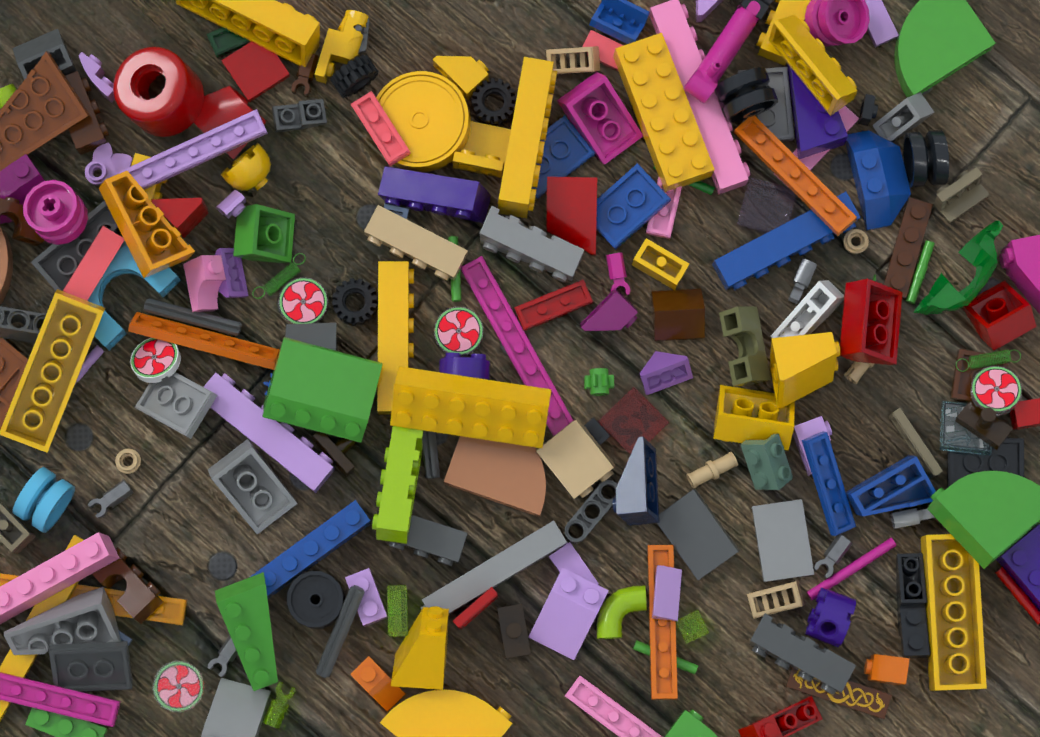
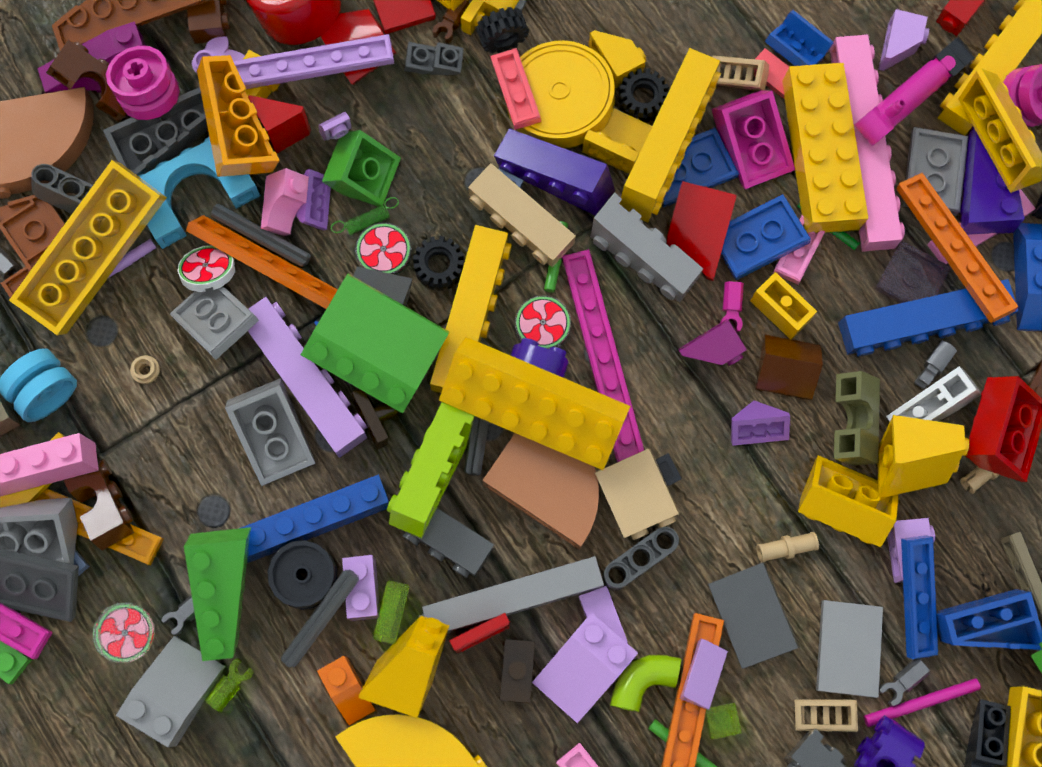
camera: 15 degrees right, 5 degrees down
(94, 264) = (169, 148): coral tile -> none
(112, 498) = (115, 404): flat silver bar -> none
(249, 169) = (364, 97): yellow cylinder -> none
(553, 305) = (653, 322): red tile -> none
(599, 382) = (684, 416): bright green gear -> none
(633, 418) = (711, 471): clear red tile -> none
(638, 487) = (699, 544): slope -> none
(746, 94) = (921, 147): black wheel -> none
(767, 463) = (853, 555): sand green bracket -> none
(861, 236) = (1011, 334): tan plate -> none
(909, 517) = (1004, 661): light grey bar -> none

